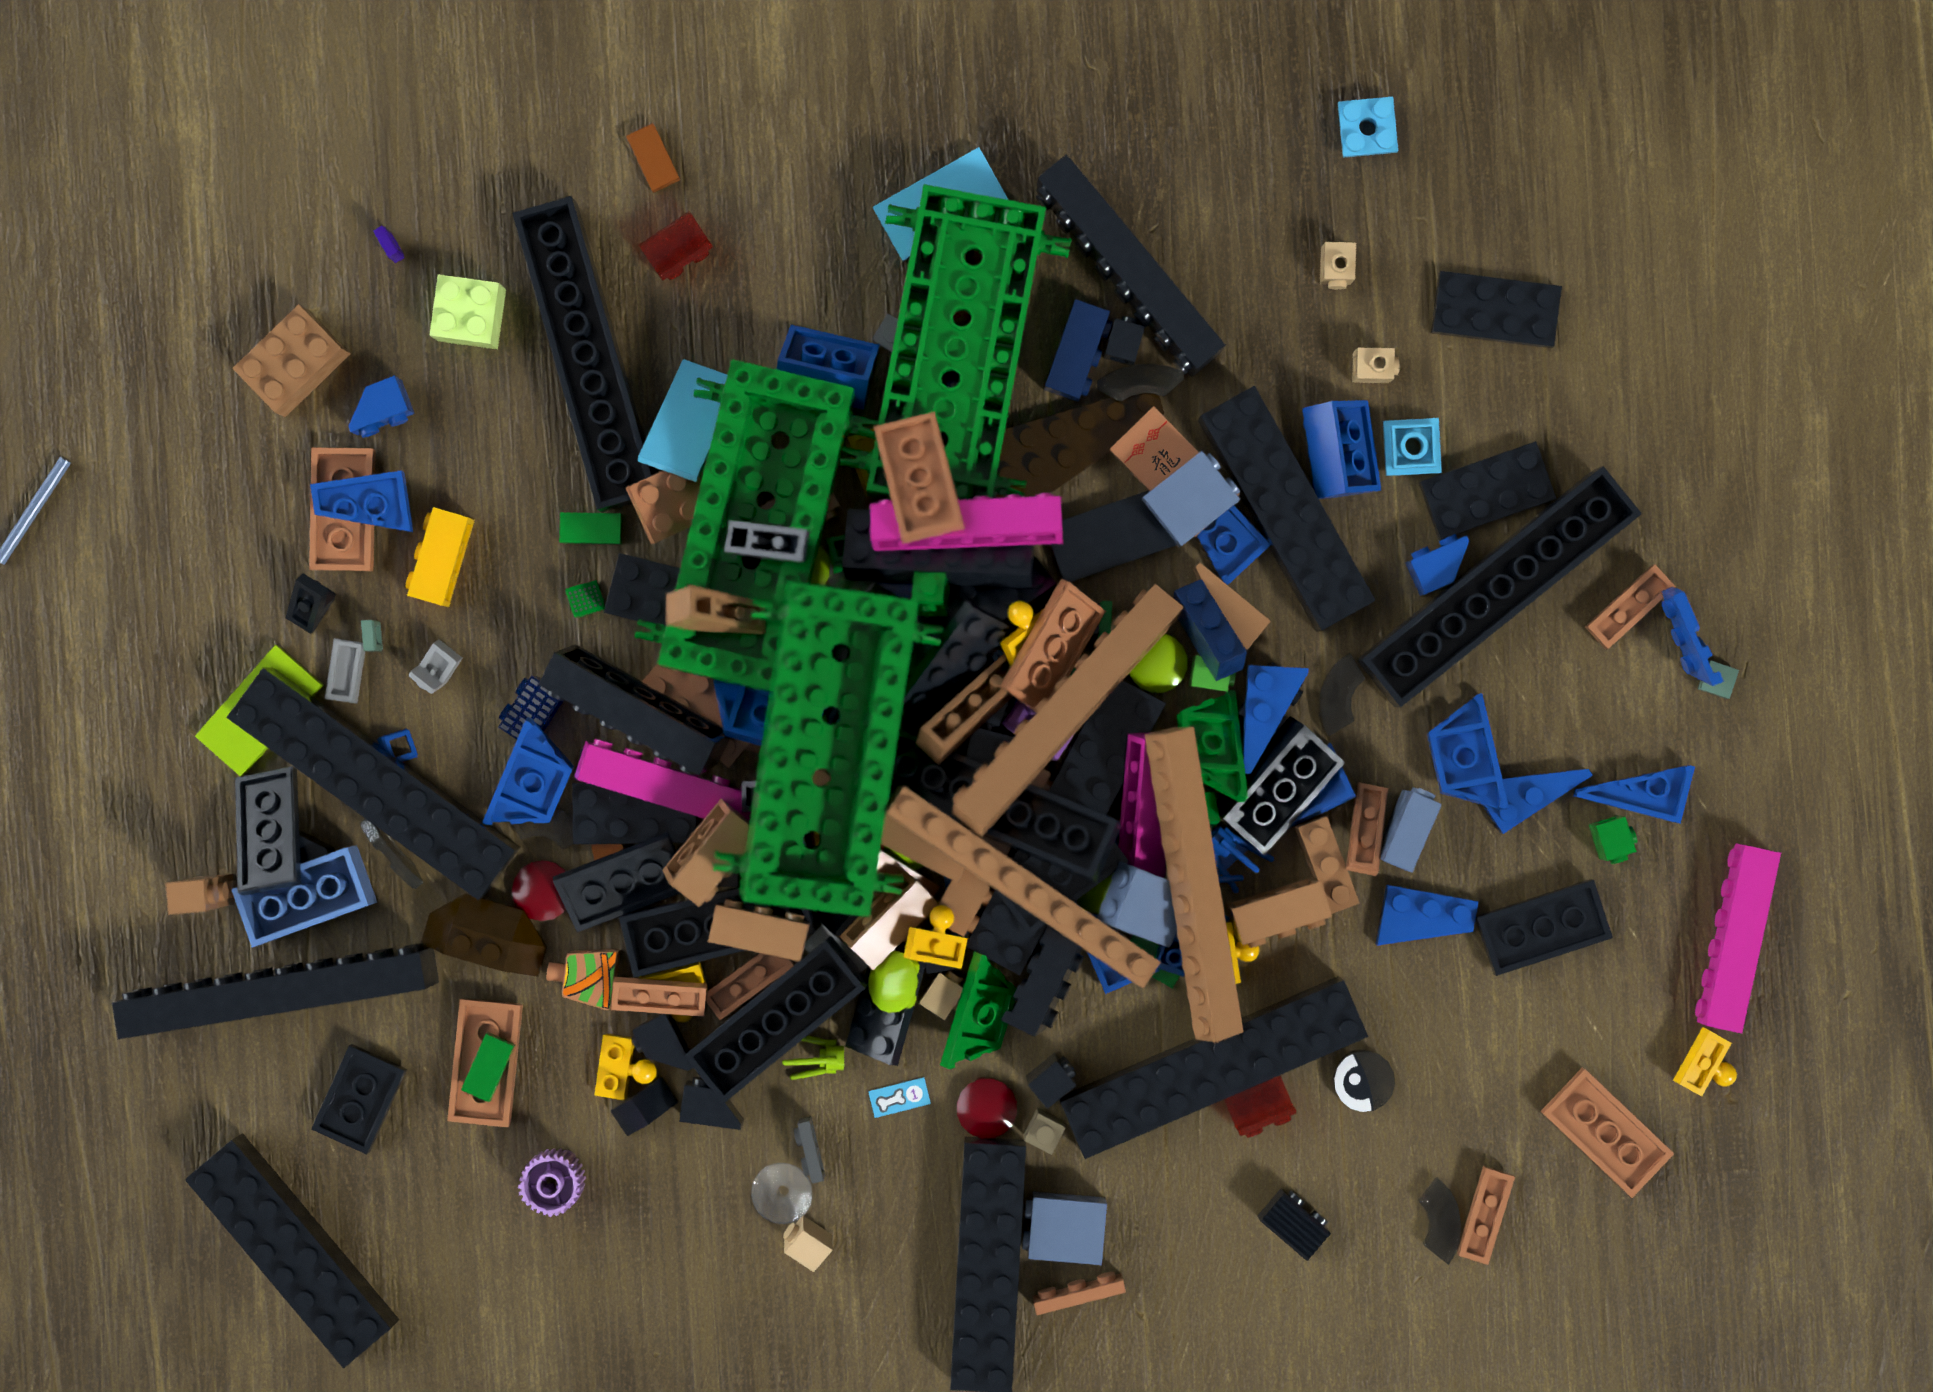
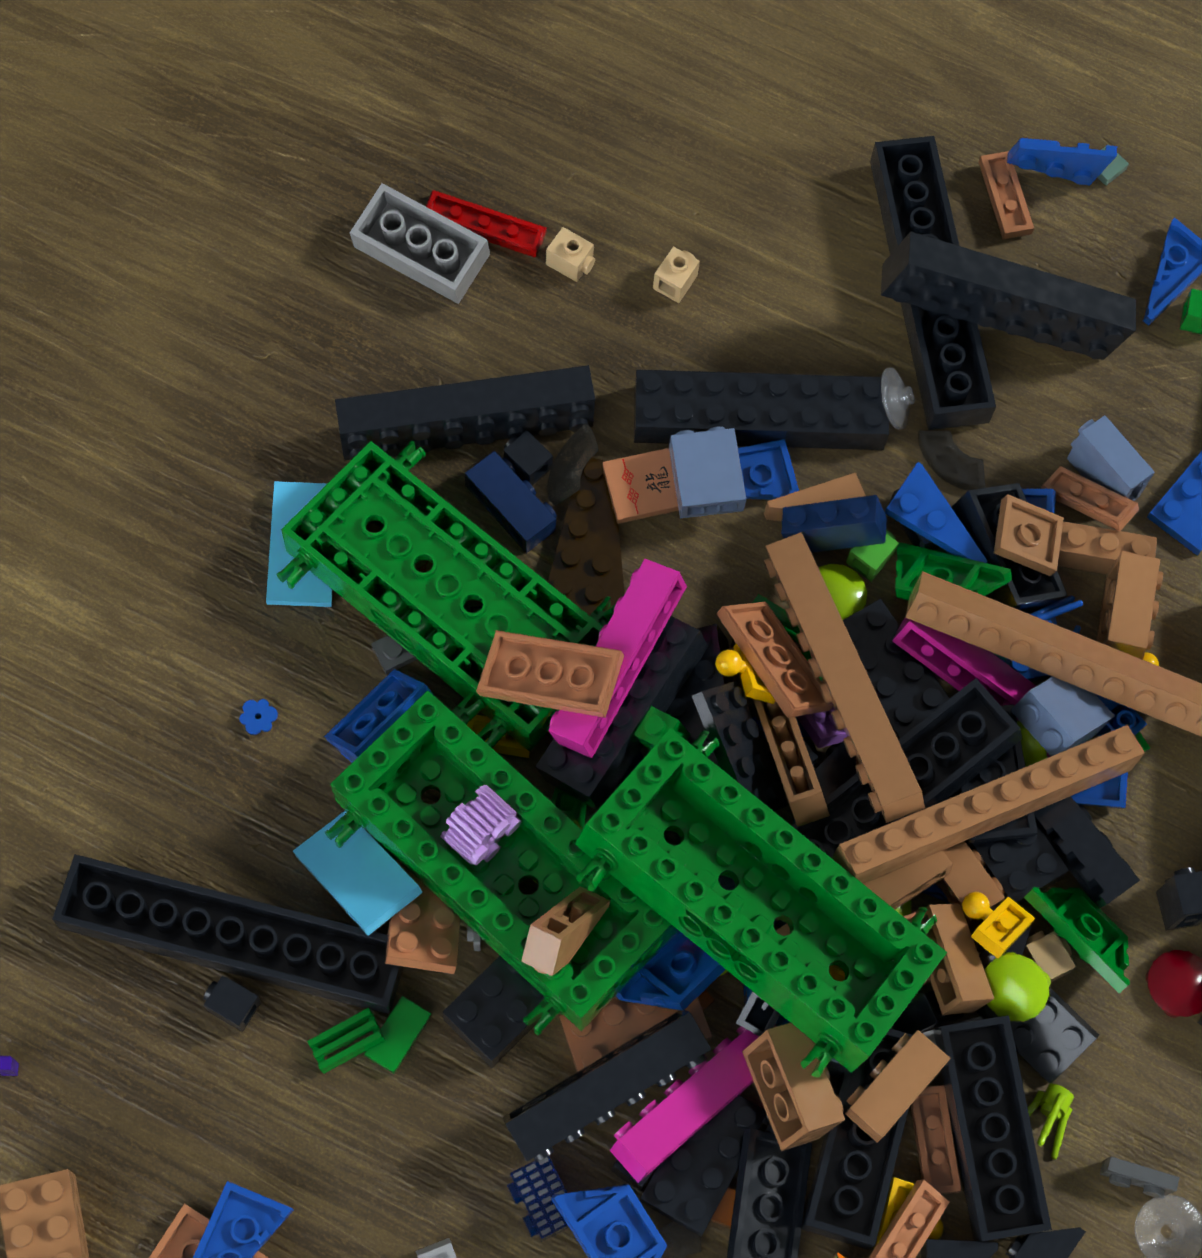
camera: 60 degrees left, 20 degrees down
(381, 405) = (148, 1167): blue slope -> none
(439, 557) = (333, 1201): yellow brick -> none
(467, 311) = (114, 1026): yellowish green brick -> none
(537, 387) = (231, 1003): none -> black brick
(542, 479) = (340, 1030): none -> green tile
(585, 599) = (464, 1080): green slope -> none
(653, 158) = (87, 769): dark orange tile -> none
(676, 247) = (185, 794): clear red bracket -> none
(765, 497) = (480, 826): none -> lavender brick
(767, 542) = (527, 842): black slope -> none
(778, 254) = (252, 710): none -> blue plant
(899, 1097) = (1127, 1063): medium azure sticker -> none
(1109, 538) = (701, 554): black tile -> none
(1268, 130) = (420, 243): none -> light grey brick
(1293, 796) = (1028, 535): none -> medium nougat plate
(1326, 171) = (490, 224): none -> red tile
(1341, 448) = (732, 338): blue slope -> none
(1362, 617) = (896, 398): none -> clear dish
(1378, 112) = (467, 156): medium azure piece -> none
(1397, 458) = (765, 299): medium azure piece -> none
(1437, 567) = (884, 320): blue slope -> none
(1467, 757) = (1068, 386): blue wing -> none
(1487, 490) = (839, 250): black plate -> none
(1496, 309) = (686, 161): black plate -> none
(1505, 663) = (1007, 296): none -> black brick
(1532, 793) = (1126, 371): blue wing -> none

